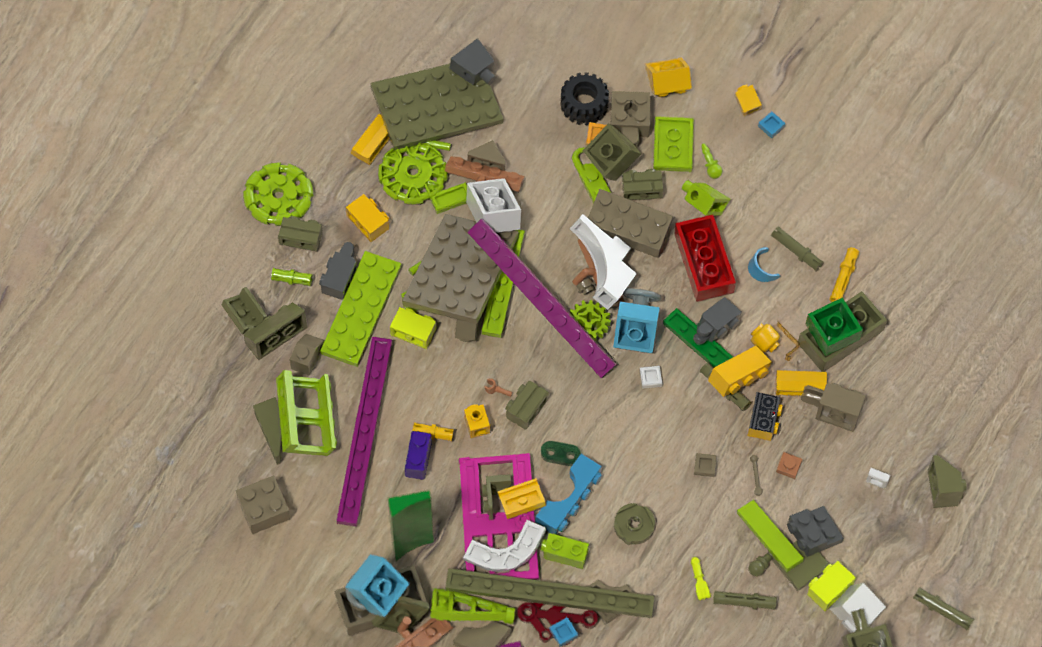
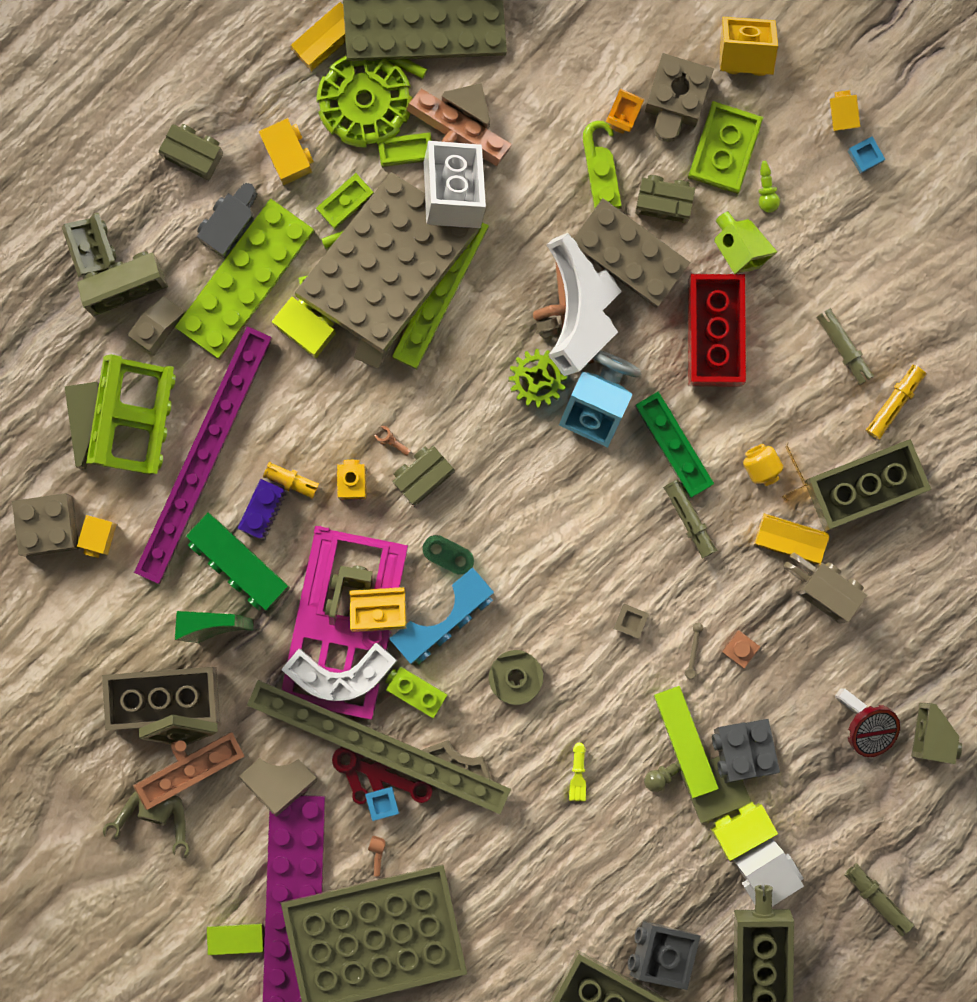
camera: 15 degrees right, 20 degrees up
(277, 183) = (177, 68): lime plate -> none
(291, 277) = (164, 210): lime pin -> none
(302, 503) = (96, 536): none -> yellow brick
(375, 586) = (146, 699): medium azure piece -> none
(389, 484) = (237, 561): none -> green brick
(418, 240) = (345, 201): none -> lime plate
(443, 608) = (235, 737): lime plate -> none
(541, 298) = (480, 335): magenta plate -> none
(589, 86) = (623, 30): black tyre -> none
(611, 152) = (635, 144): olive slope -> none
(650, 377) = (597, 477): white tile -> none
(717, 321) = (704, 427): dark grey hinge -> none
(739, 371) = (714, 508): yellow brick -> none
(745, 600) = (658, 830): olive pin -> none
(756, 272) = (779, 362): dark azure helmet -> none
(764, 415) = (728, 575): brick -> none
(834, 326) = (856, 487): green brick -> none
(901, 492) = (874, 731): none -> tile

